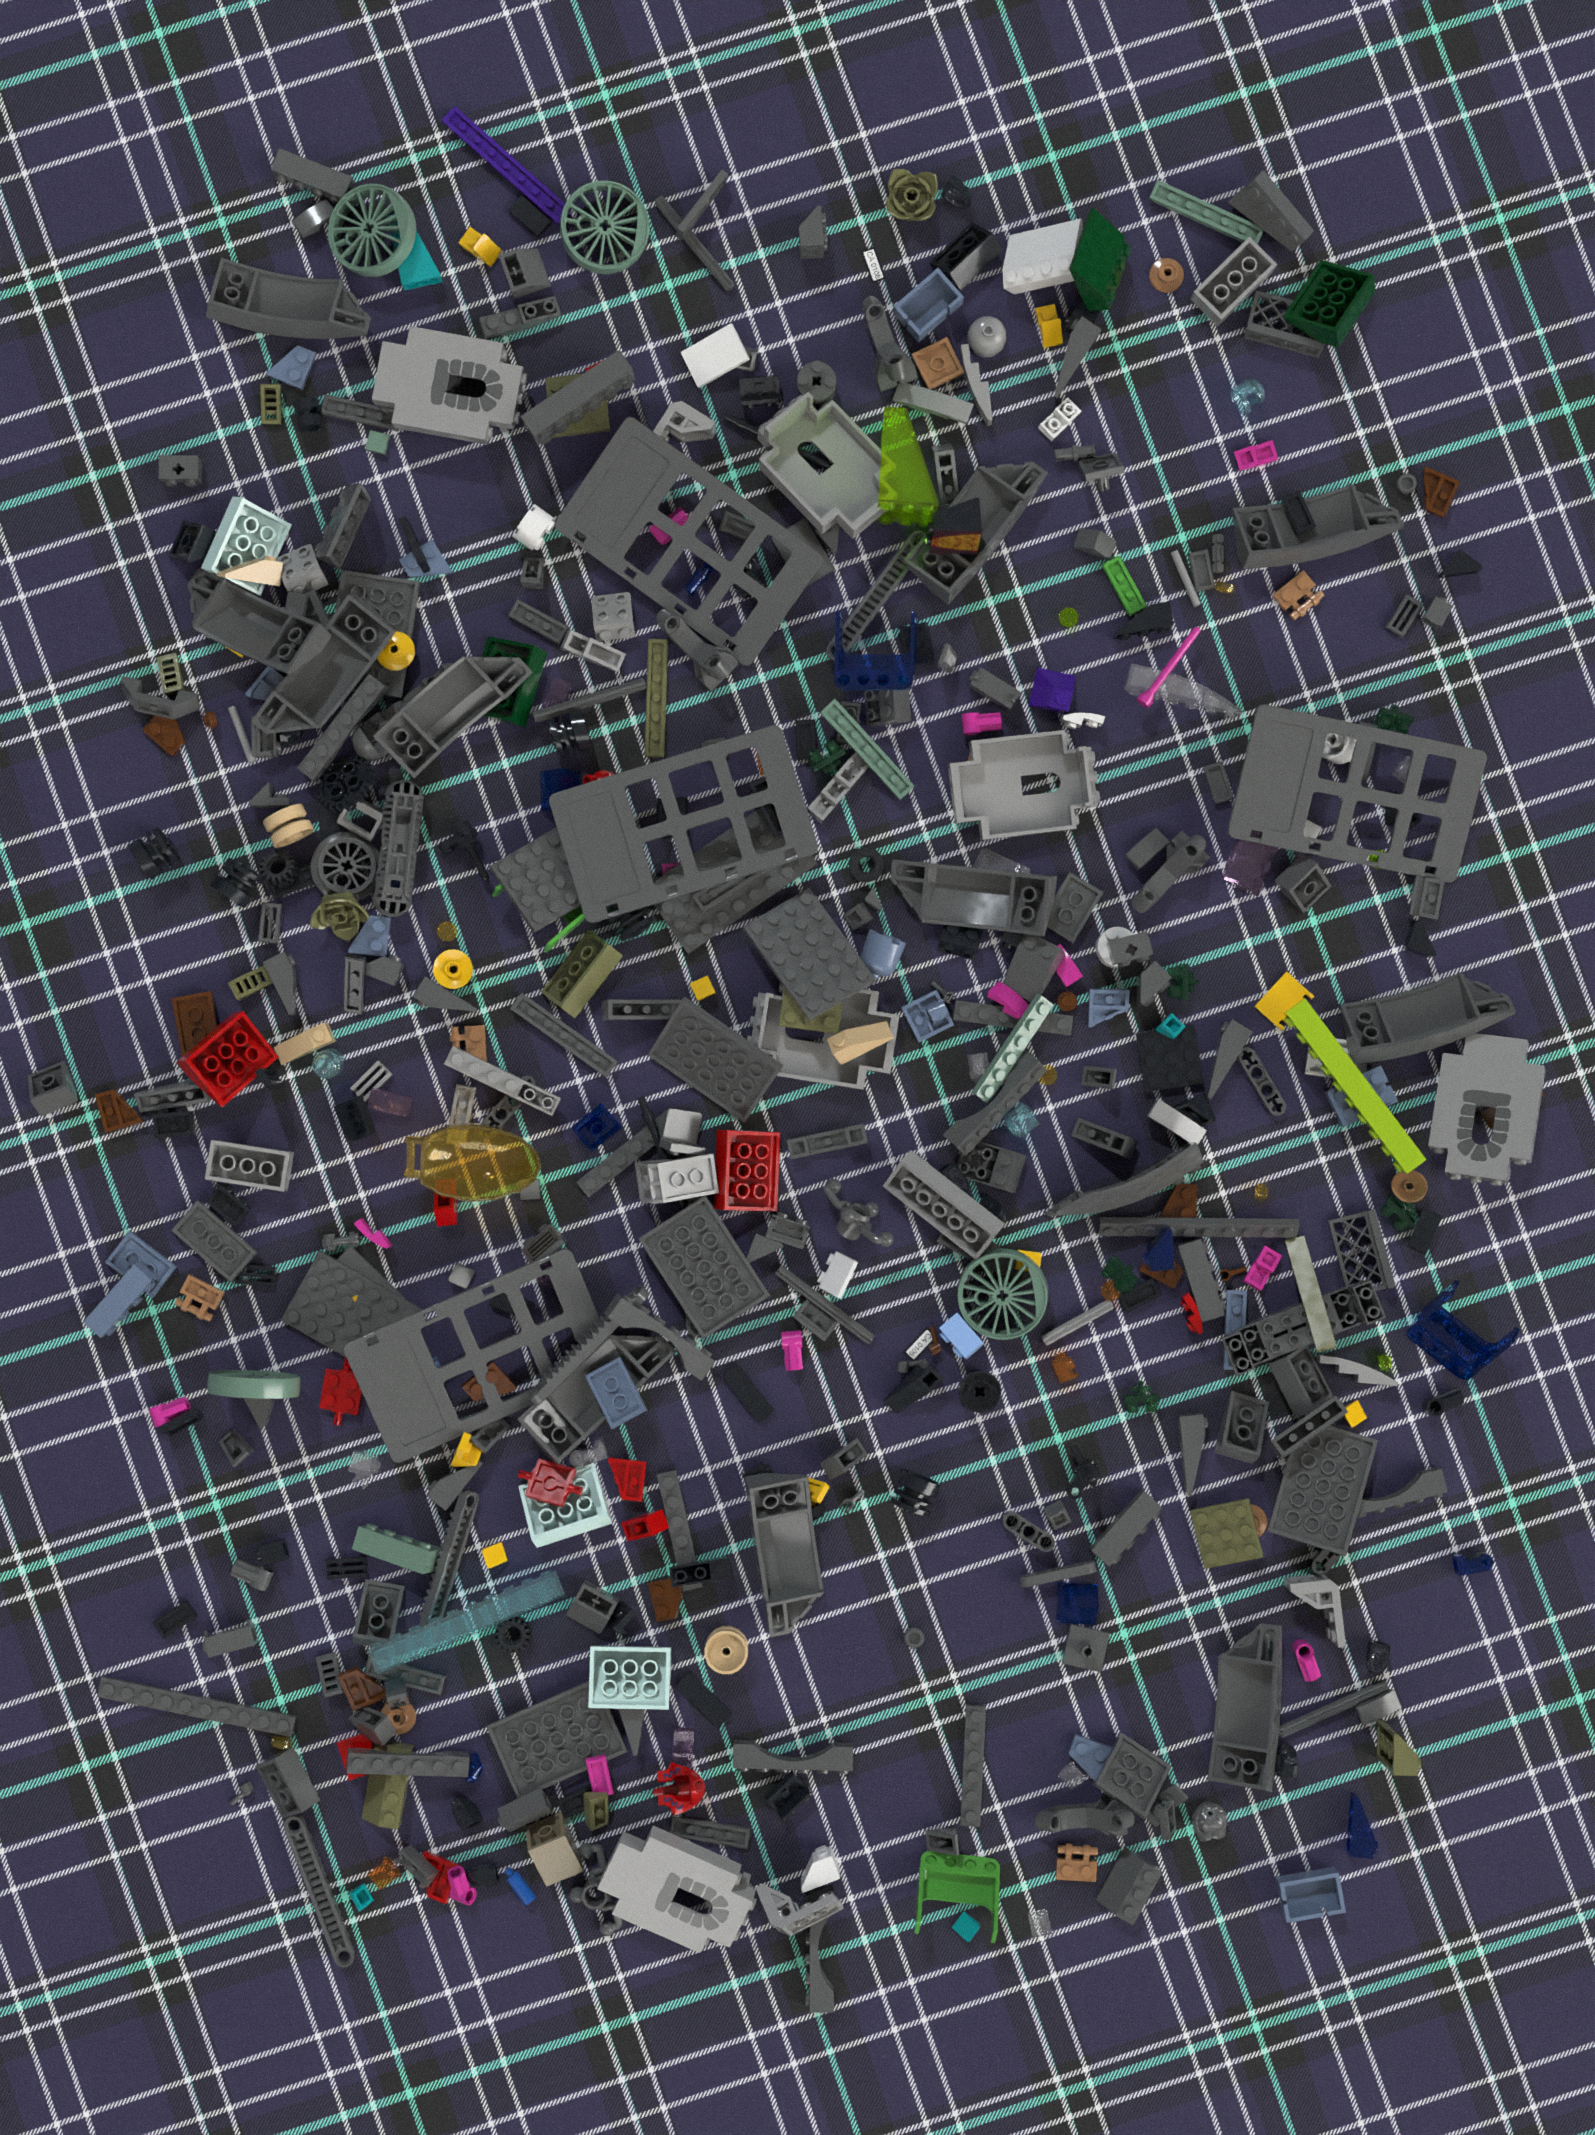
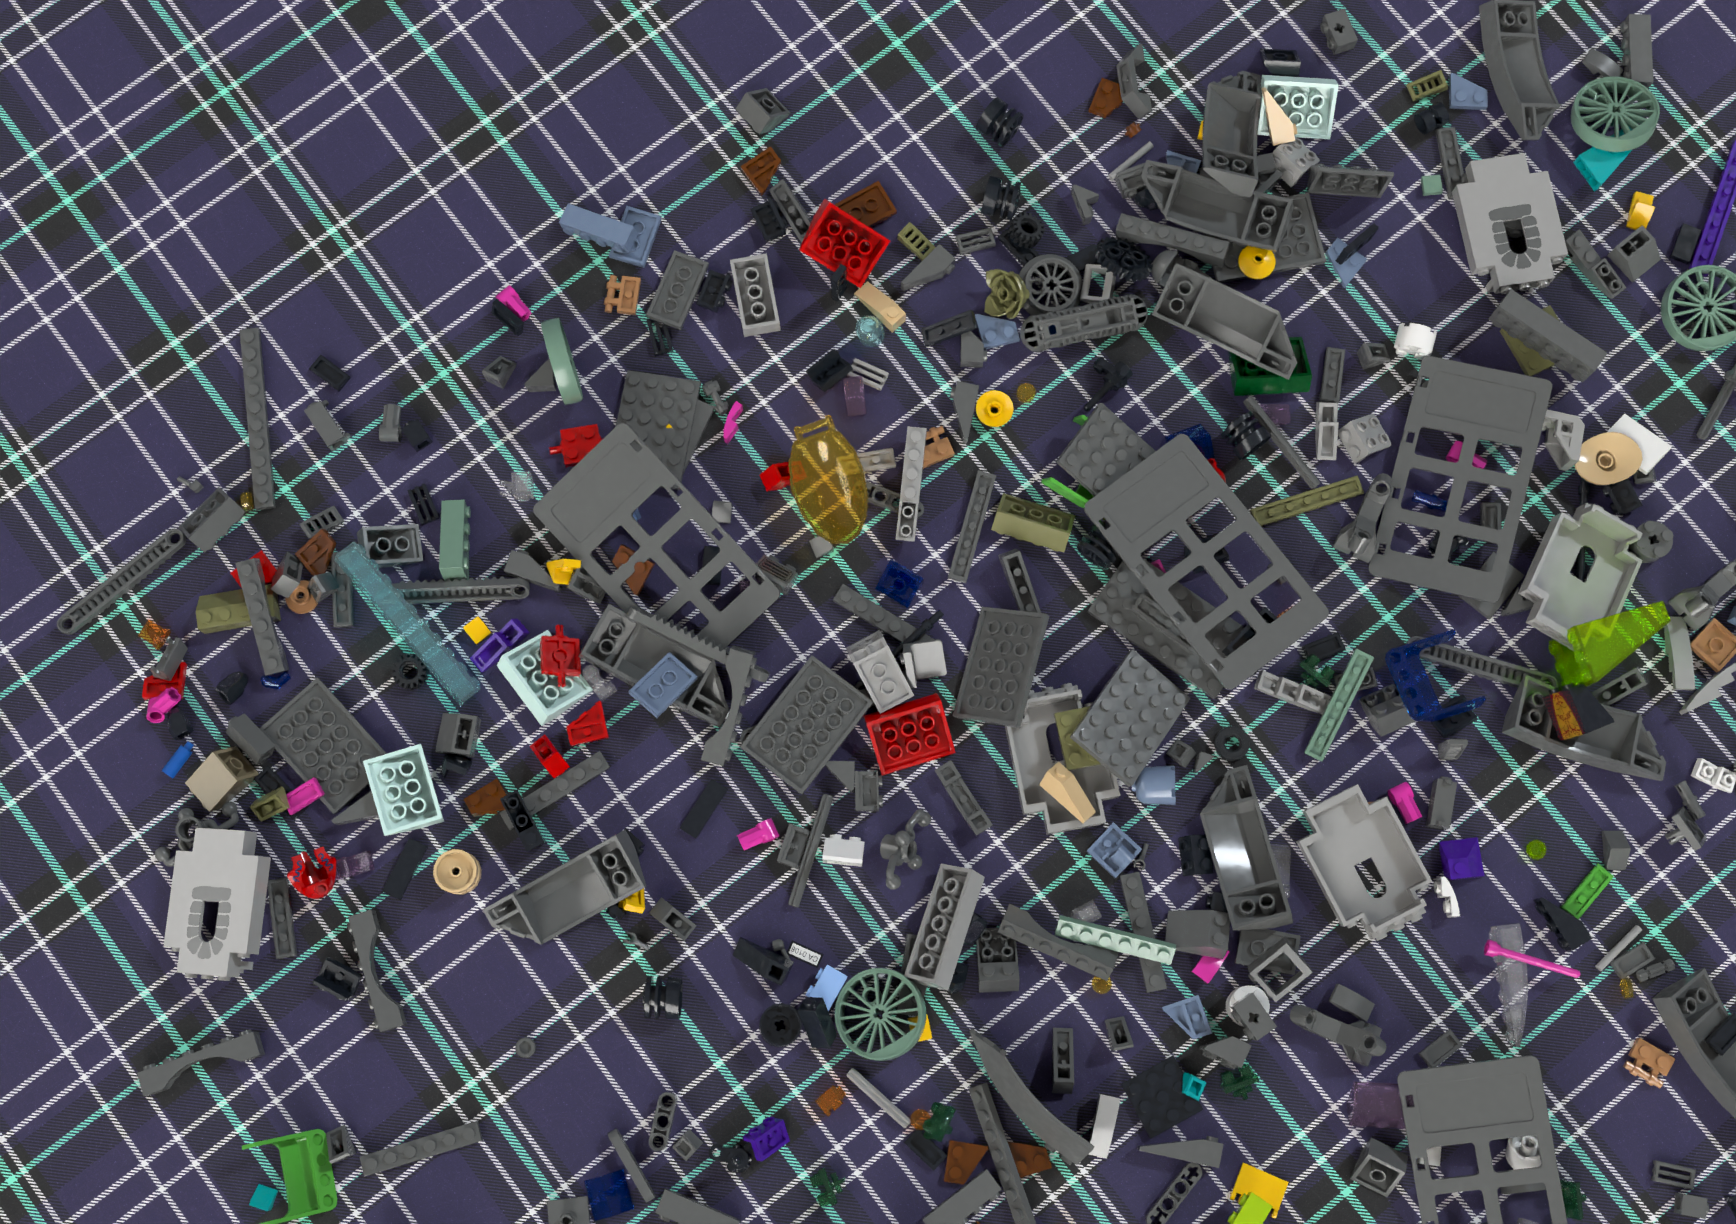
camera: 65 degrees right, 10 degrees down
(169, 690) = (1145, 85): olive slope -> none
(288, 825) = (1067, 223): tan wheel -> none
(361, 1897) = (126, 620): teal slope -> none
(517, 1538) = (499, 644): none -> dark purple slope
(702, 988) = (1060, 635): yellow slope -> none
(721, 389) = (1608, 458): none -> tan hat
(789, 1916) = (223, 1020): light grey bracket -> none
(820, 1869) = (277, 1036): white slope -> none
(934, 1348) = (806, 969): reddish brown hand -> none
(990, 1356) = (817, 1022): none -> black brick
(1013, 1003) = (1158, 924): dark pink slope -> none
(1021, 1121) = (1049, 973): clear light blue helmet -> none
(1067, 1001) = (1178, 977): reddish brown plate -> none
(1075, 894) = (1280, 947): none -> window
(1077, 1439) = (767, 1137): none -> dark purple bracket
(1160, 1251) = (975, 1153): clear blue slope -> none
(1194, 1320) = (919, 1212): red slope -> none
(1197, 1109) = (1124, 1140): black slope -> none

